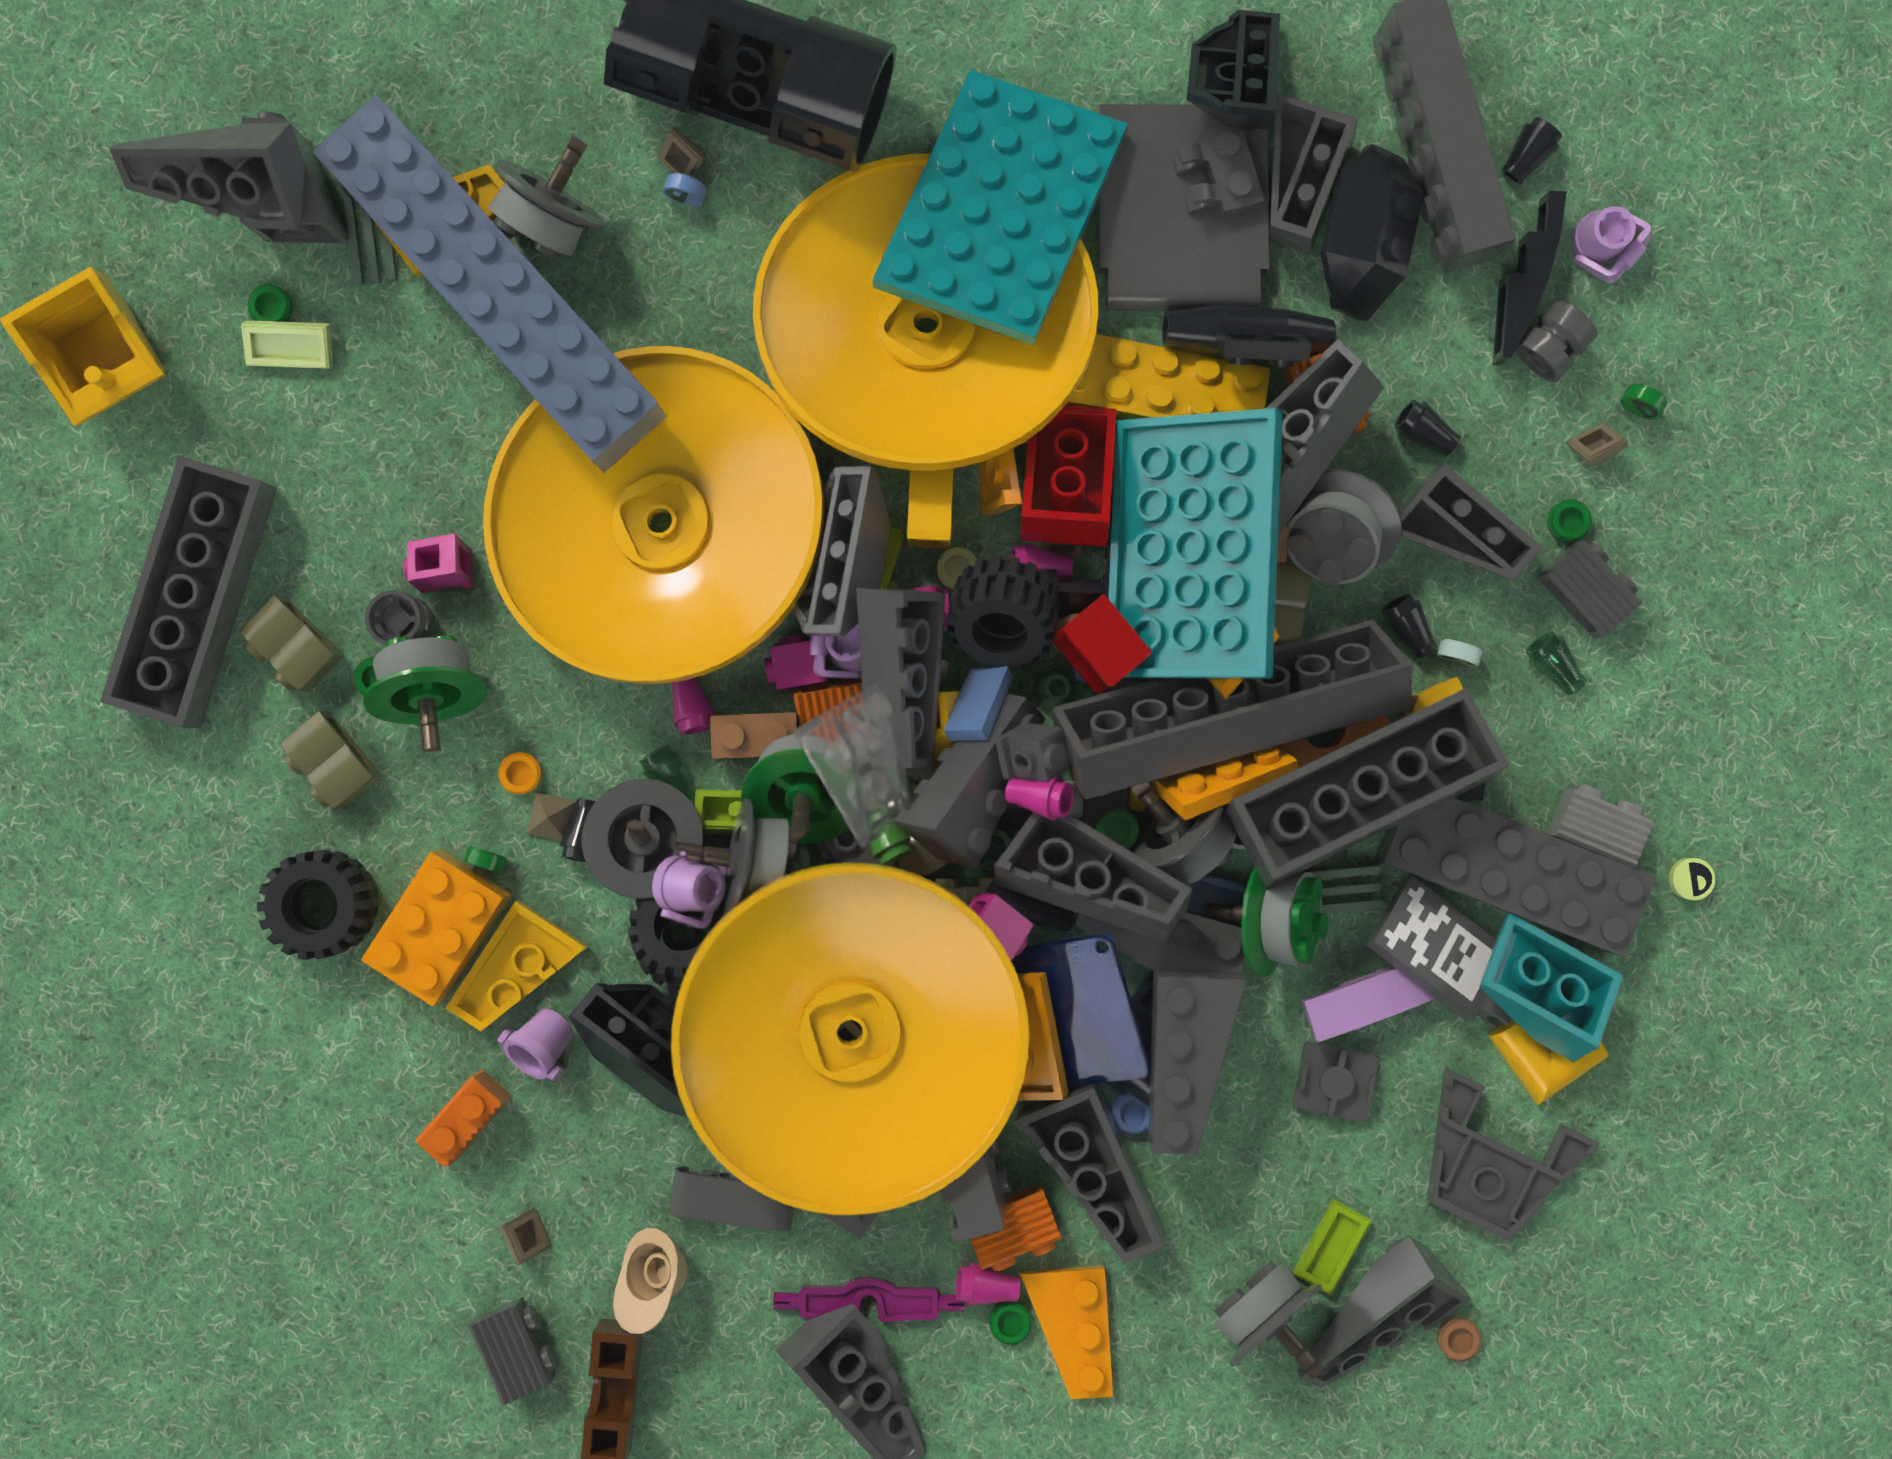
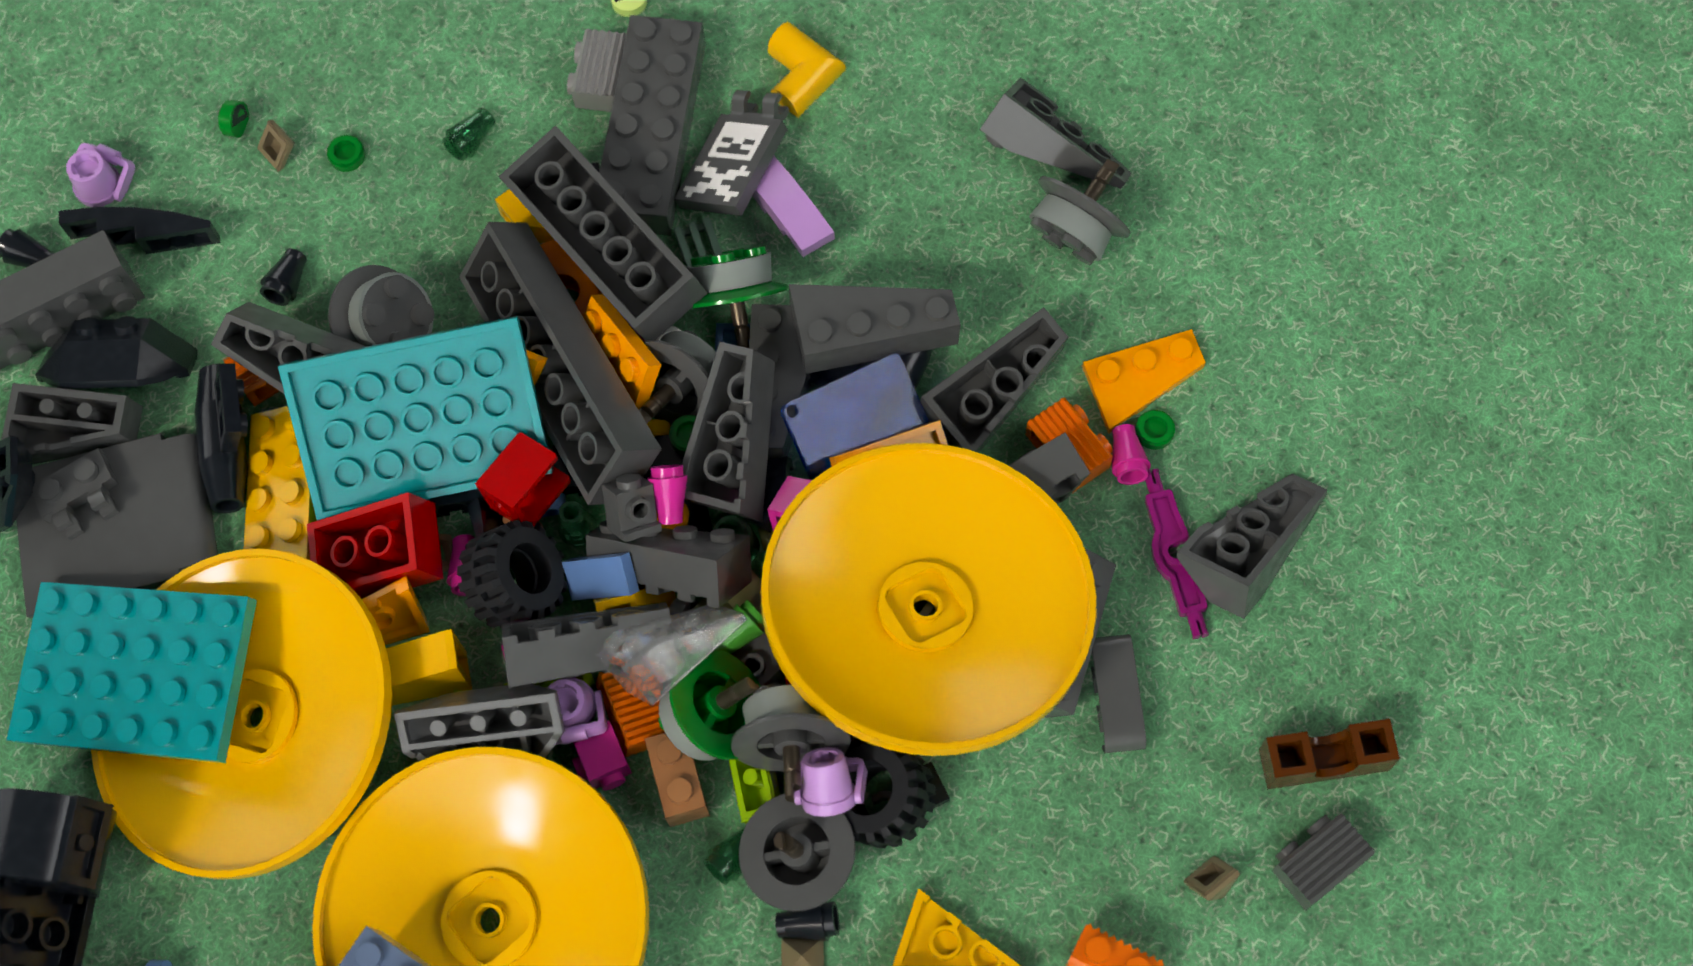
camera: 100 degrees left, 20 degrees down
(539, 1045) = (1023, 908): lavender piece -> none
(632, 1037) = (997, 801): black wedge -> none
(648, 1279) = (1214, 746): tan piece -> none
(690, 707) = (664, 848): dark pink cone -> none
(953, 563) = (482, 640): yellowish green tile -> none
(1130, 1114) = (938, 370): medium blue tile -> none
(1332, 1246) = (1006, 190): lime tile -> none
(1335, 1081) = (867, 219): dark grey piece -> none
(1408, 623) = (454, 253): black cone -> none
(1458, 1338) = (1057, 80): medium nougat tile -> none
(1460, 652) = (475, 207): light aqua tile -> none
(1464, 525) = (363, 220): dark grey wedge -> none
(1487, 1179) = (916, 90): dark grey wing -> none
(1550, 988) = (742, 66): teal slope -> none
(1561, 334) = (189, 193): dark grey wheel -> none
(1590, 588) = (400, 122): dark grey brick -> none

